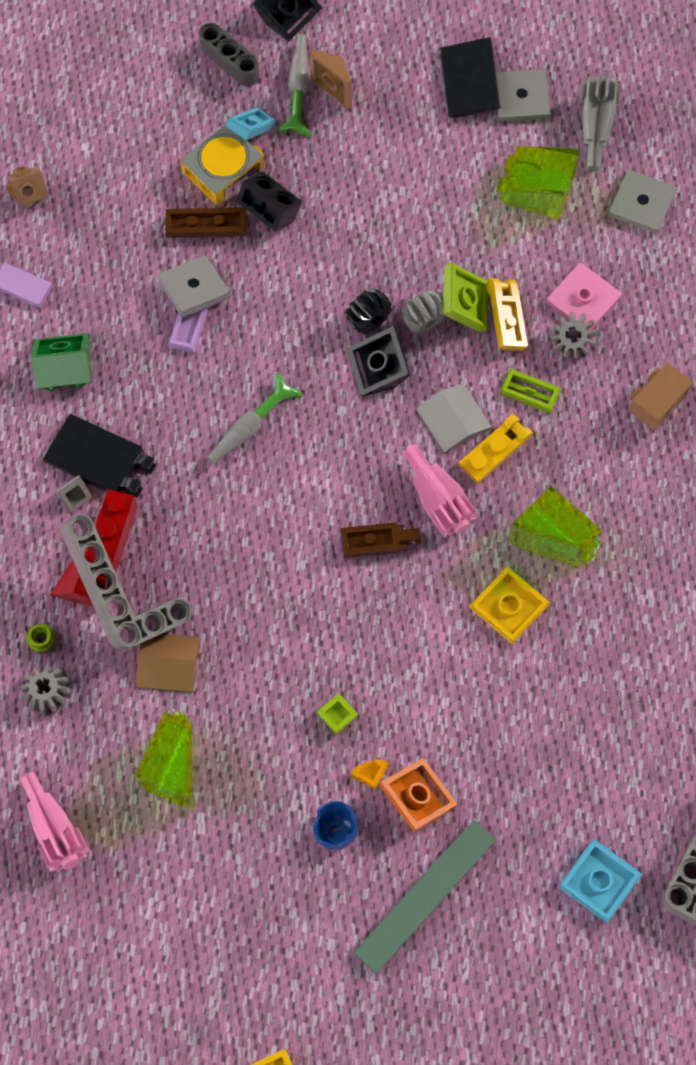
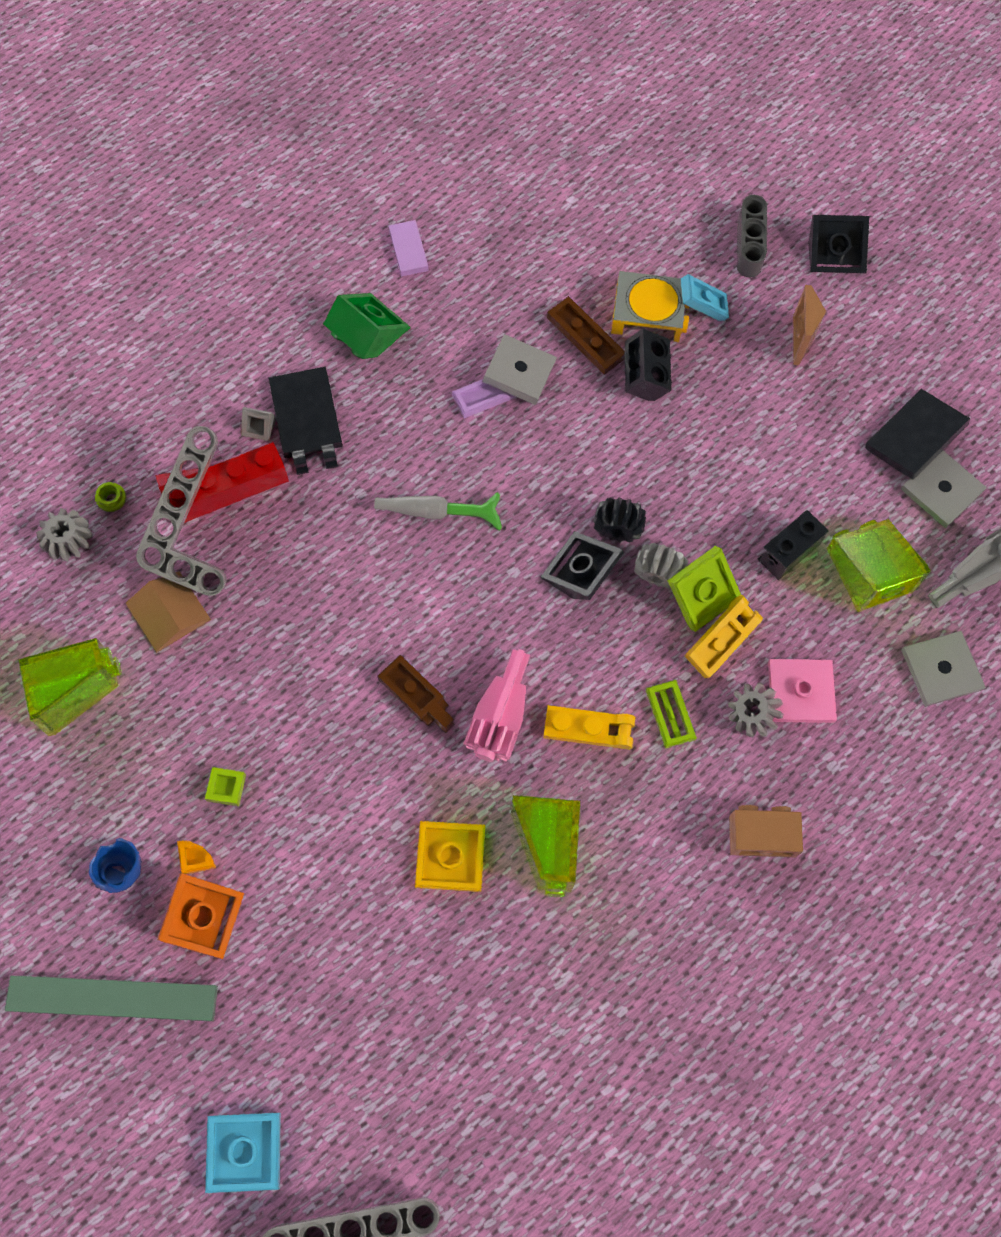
camera: 45 degrees right, 0 degrees up
(28, 177) = (494, 183): medium nougat brick -> none
(298, 85) = (776, 309): piece -> none
(453, 417) = (588, 668): light grey slope -> none
(481, 219) = (793, 544): none -> black hinge

